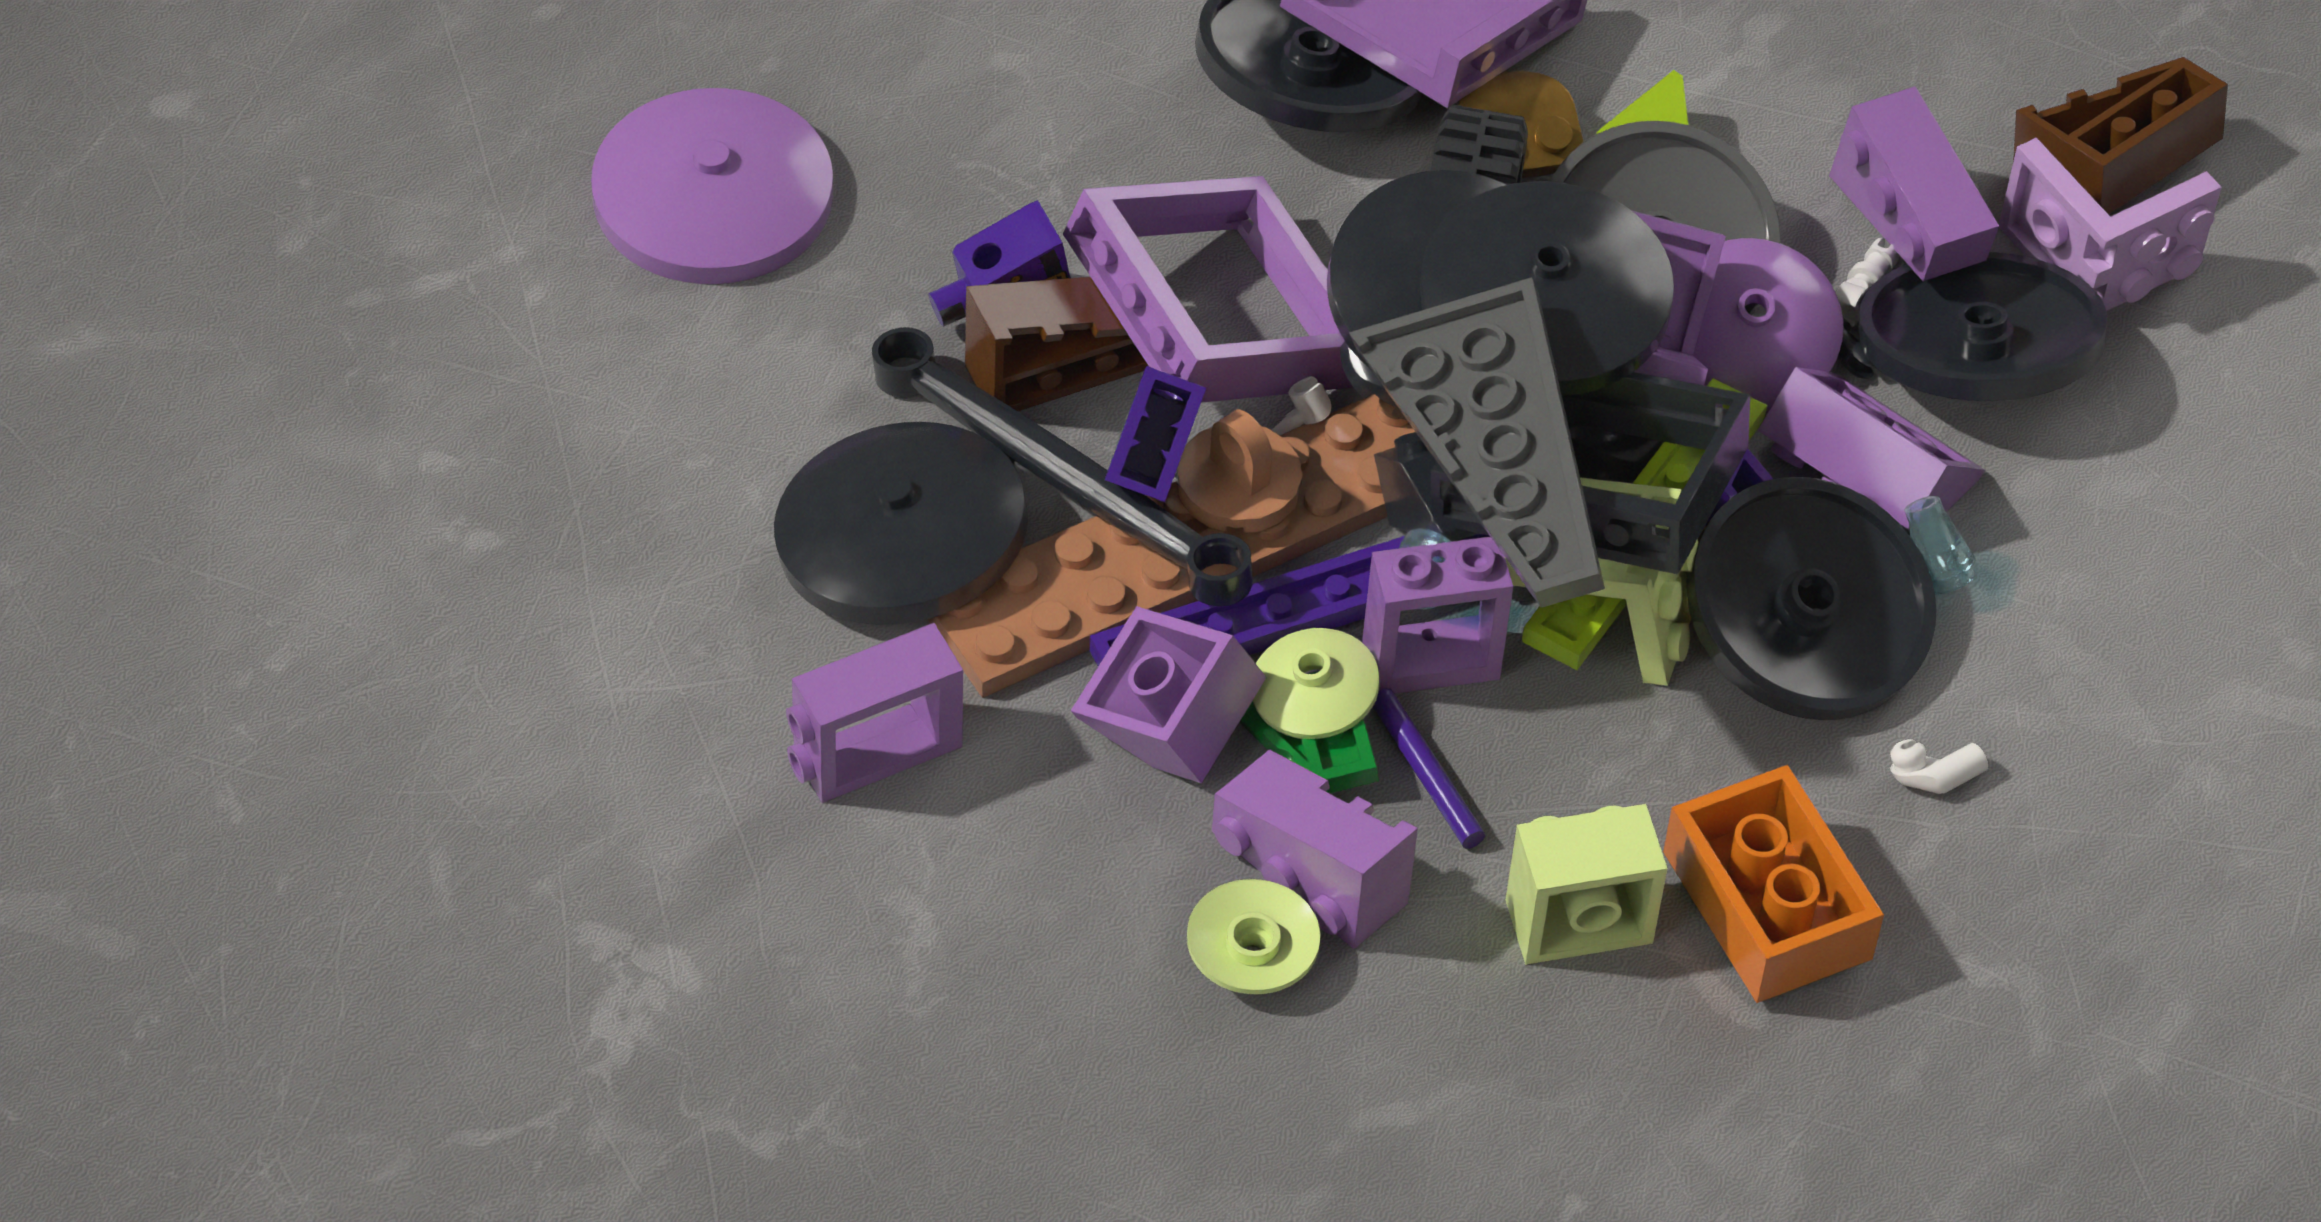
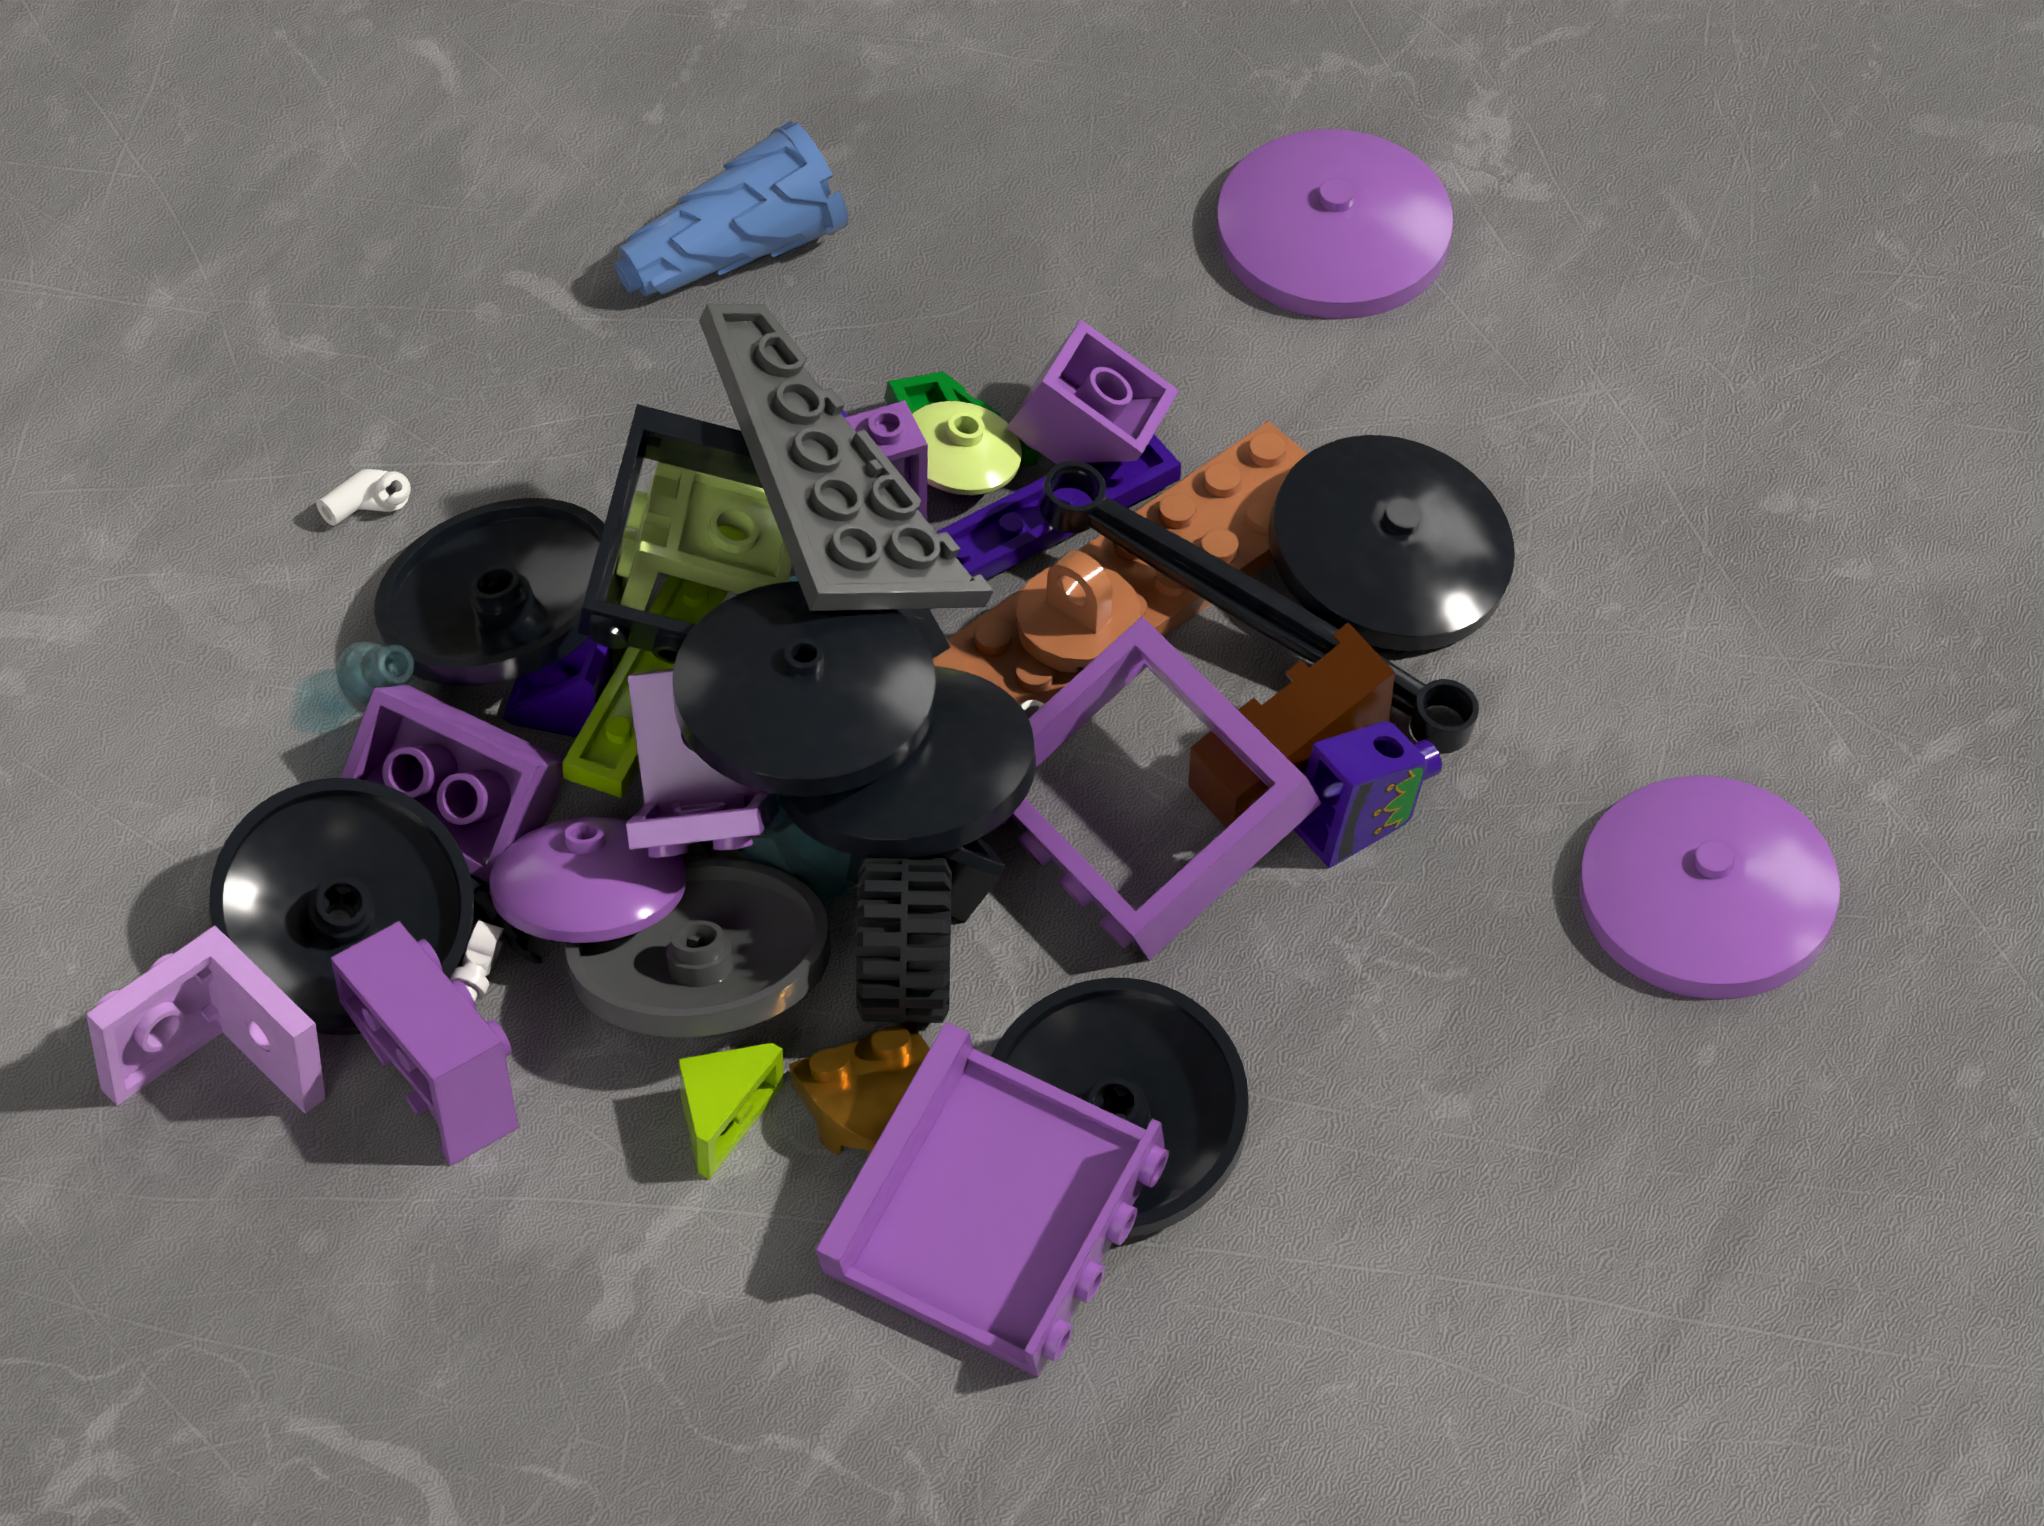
camera: 170 degrees right, 0 degrees up
(835, 918) = (1334, 223): none -> medium lavender dish
(901, 670) = (1323, 375): medium lavender window -> none
(1155, 433) = (1168, 562): dark purple torso -> none
(1255, 915) = (966, 239): yellowish green dish -> none
(1325, 850) = (926, 303): medium lavender wedge -> none
(1498, 985) = (755, 207): none -> medium blue cone
(1585, 883) = (667, 280): yellowish green brick -> none
(1772, 883) = (512, 333): orange brick -> none
(2131, 133) = (190, 1170): reddish brown wedge -> none

